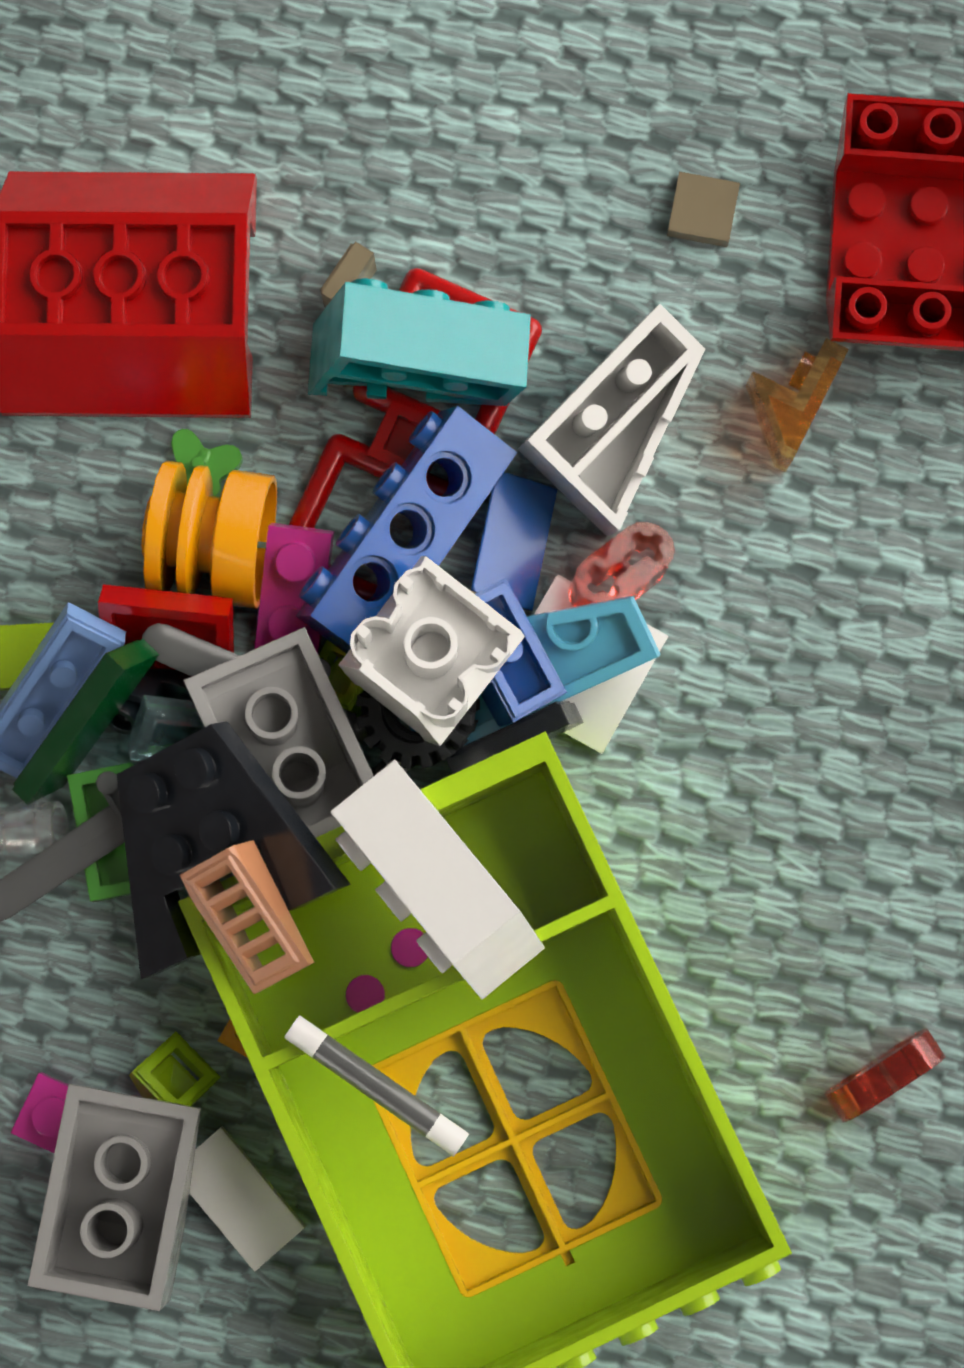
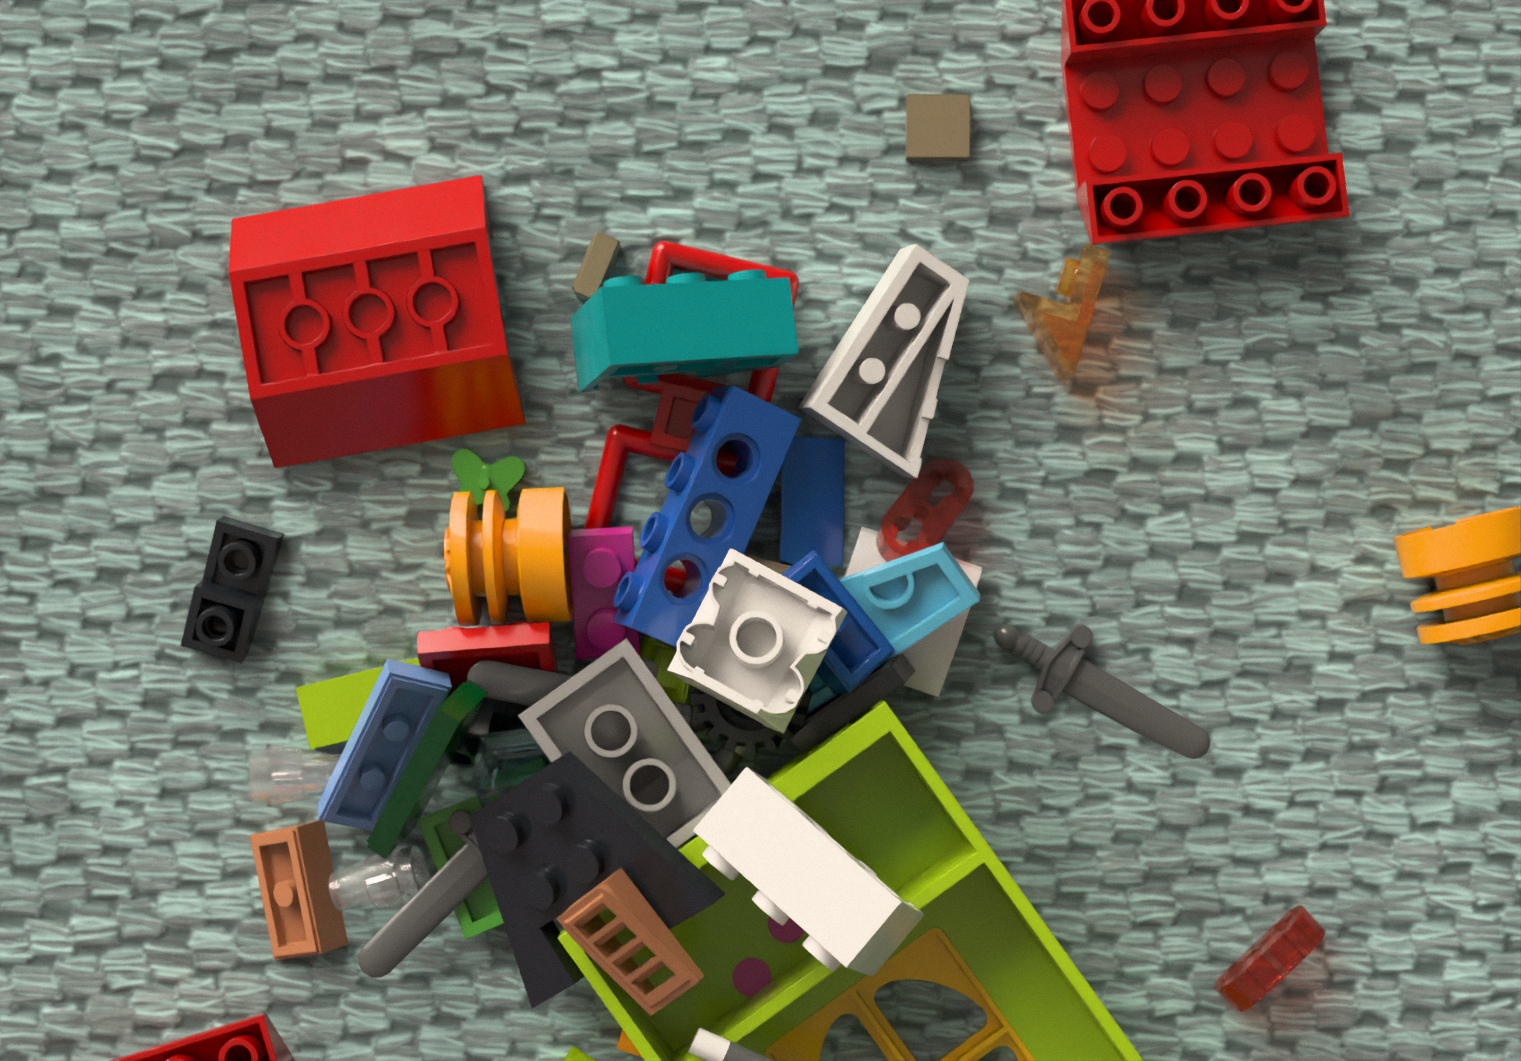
camera: 20 degrees left, 5 degrees up
(733, 754) = (1067, 671): none -> dark grey sword

